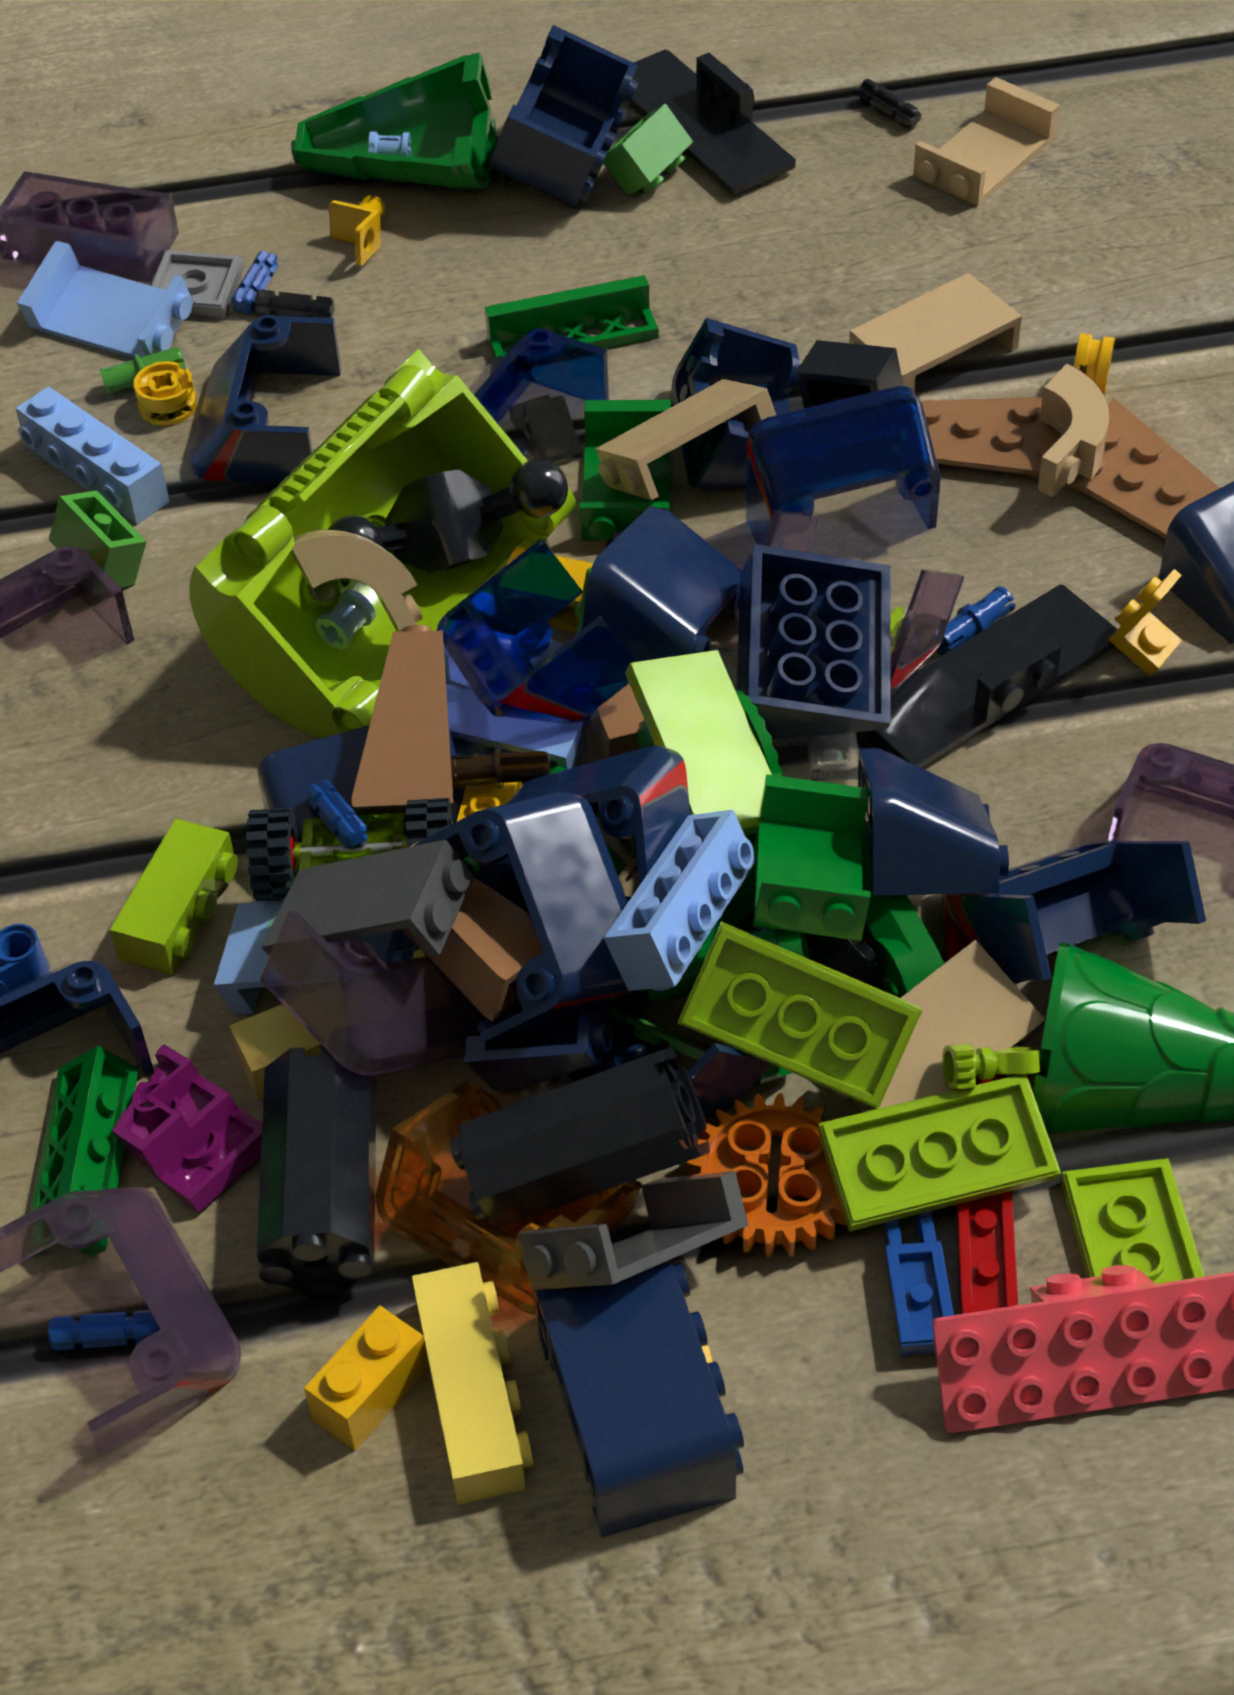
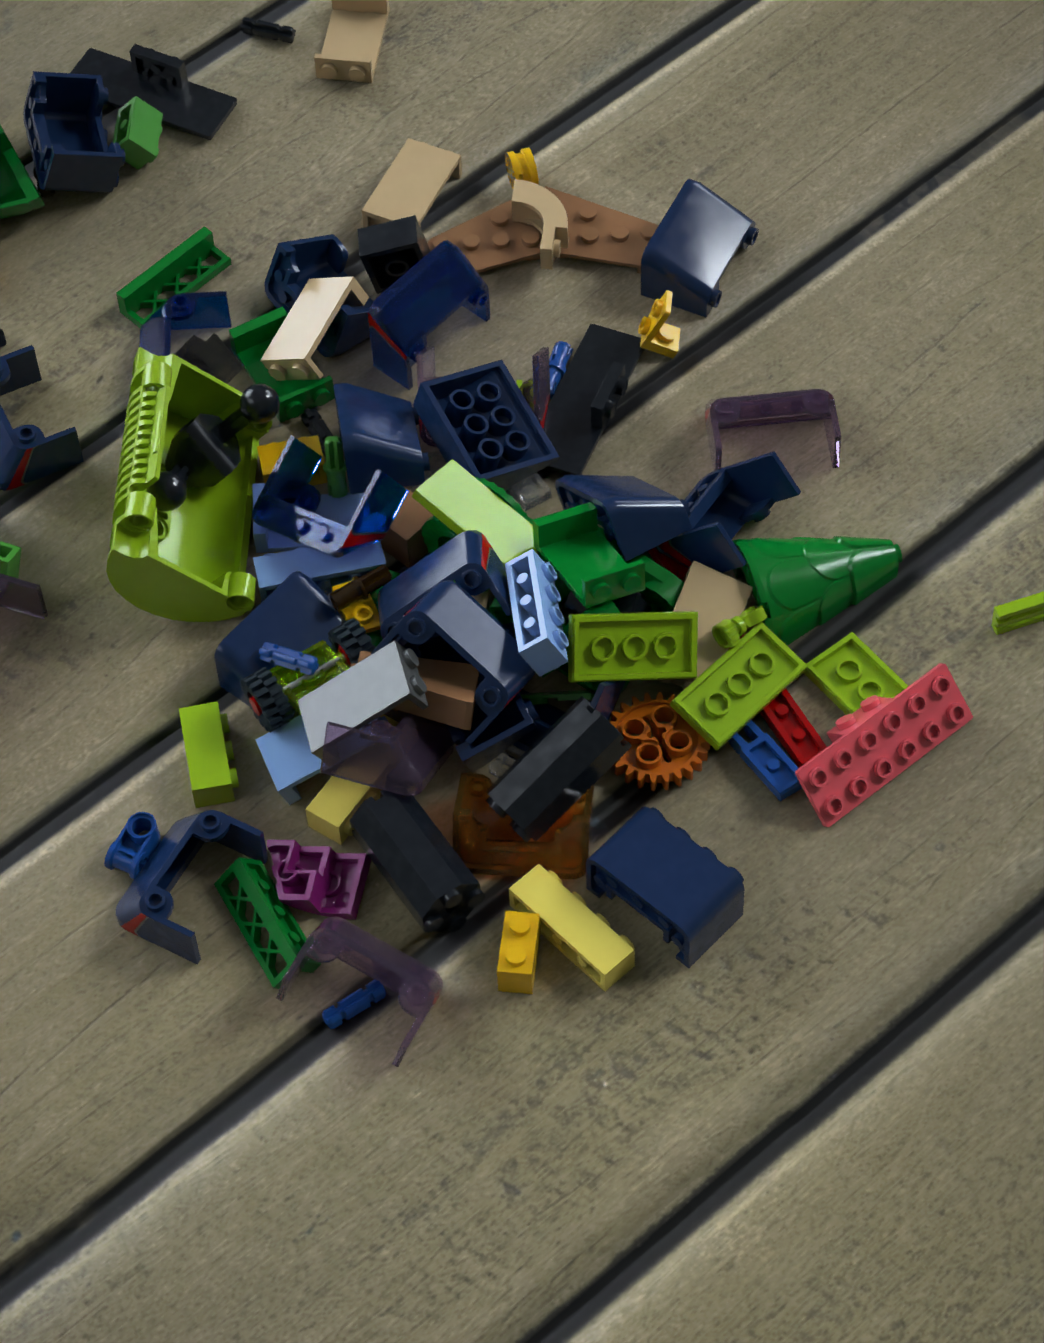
camera: 30 degrees left, 5 degrees up
(342, 554) = (181, 499): tan arch -> none
(345, 619) = (183, 540): bush -> none
(409, 728) = (297, 588): medium nougat slope -> none
(681, 1215) = (631, 793): dark grey panel -> none

